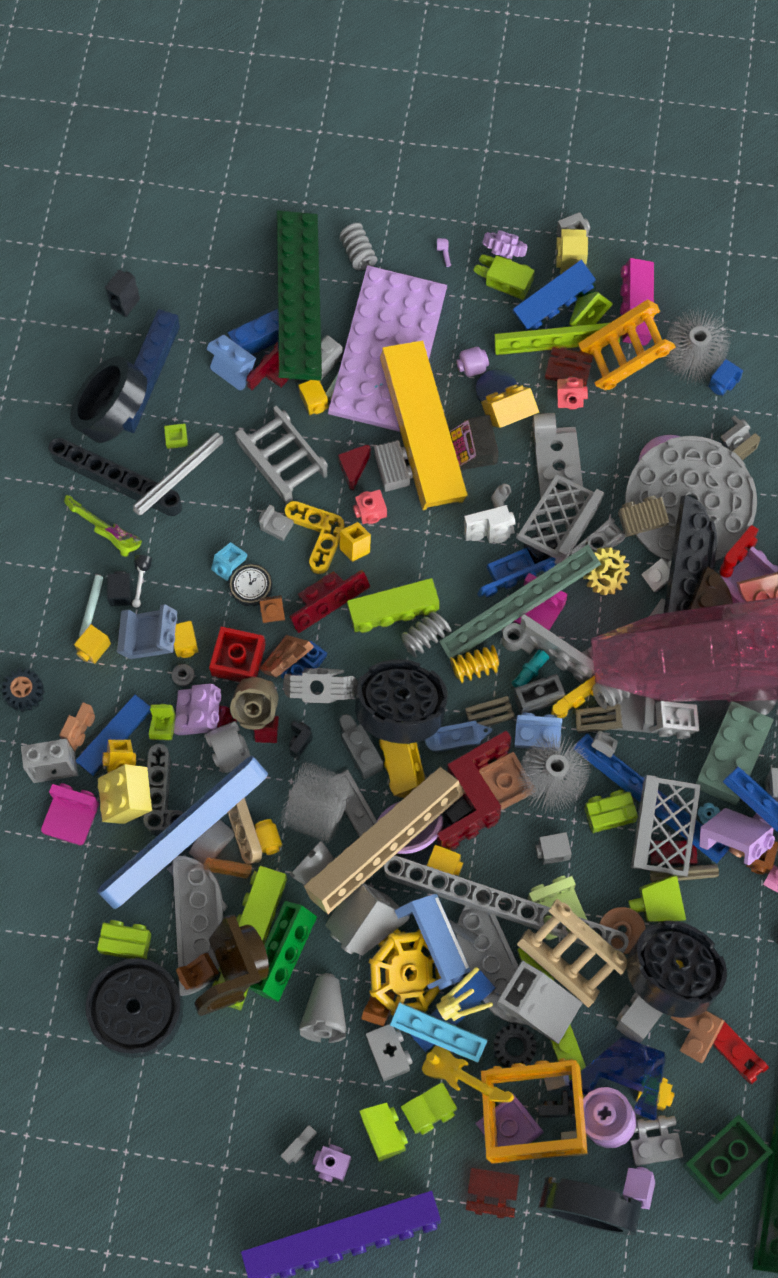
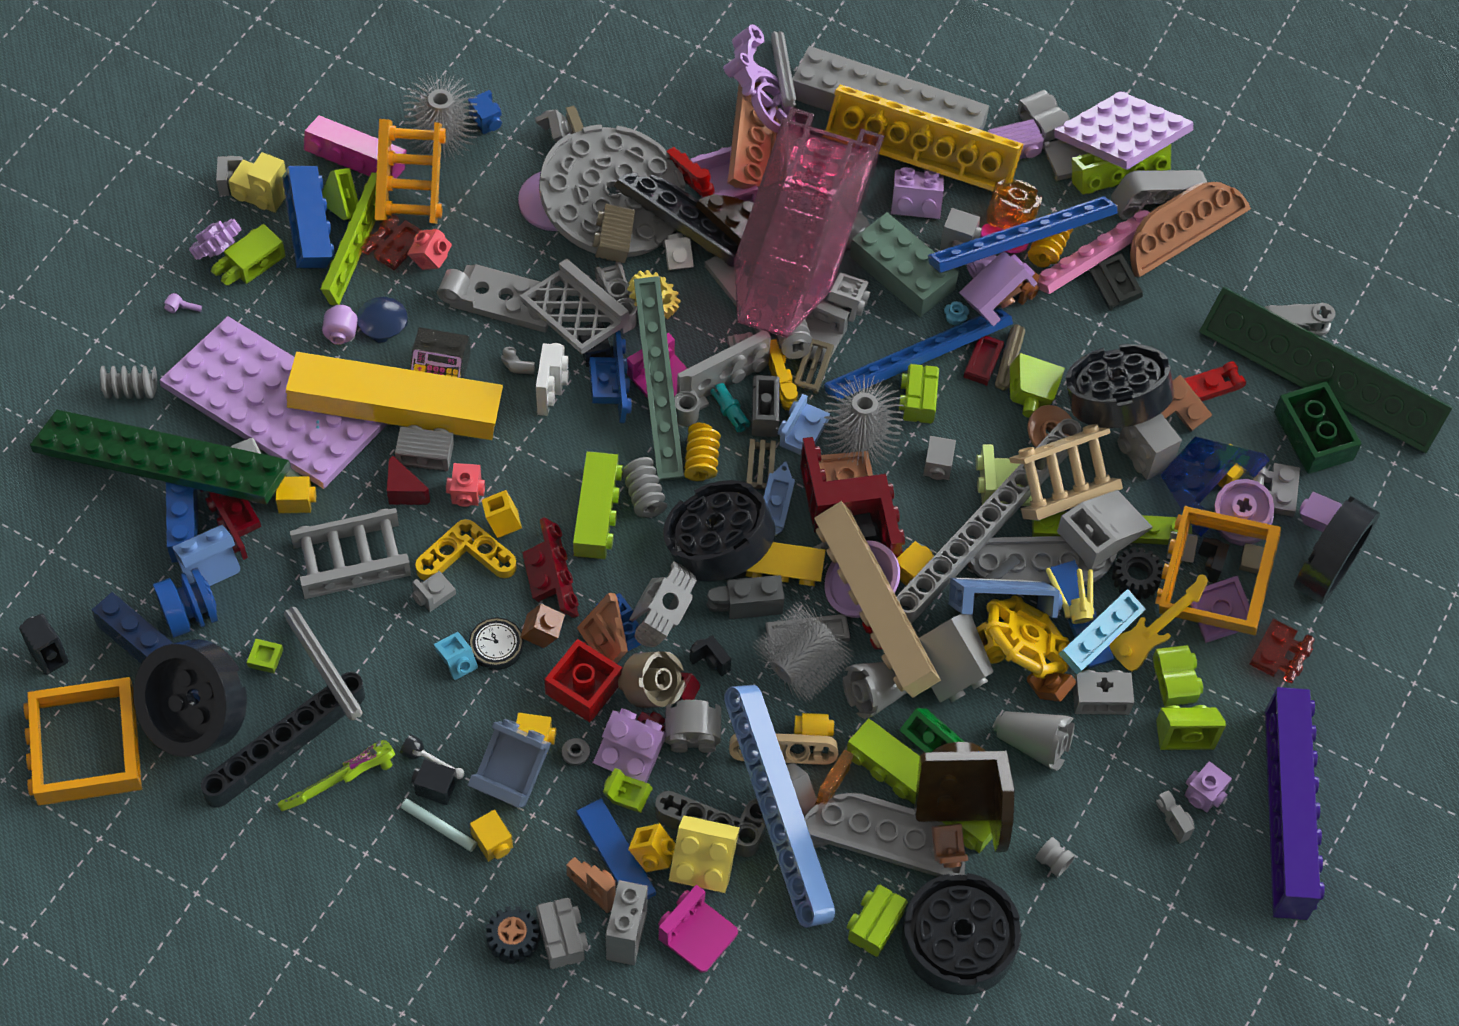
camera: 75 degrees left, 10 degrees down
(35, 721) = (560, 932): none -> light grey brick
(41, 330) = (93, 786): none -> light orange window
(190, 364) = (186, 602): none -> blue wheel
(226, 1059) = (1055, 857): none -> light grey wheel
(510, 406) = (418, 303): yellow brick -> none
(604, 743) = (844, 370): light grey tile -> none
(645, 824) = (950, 360): light grey fence -> none

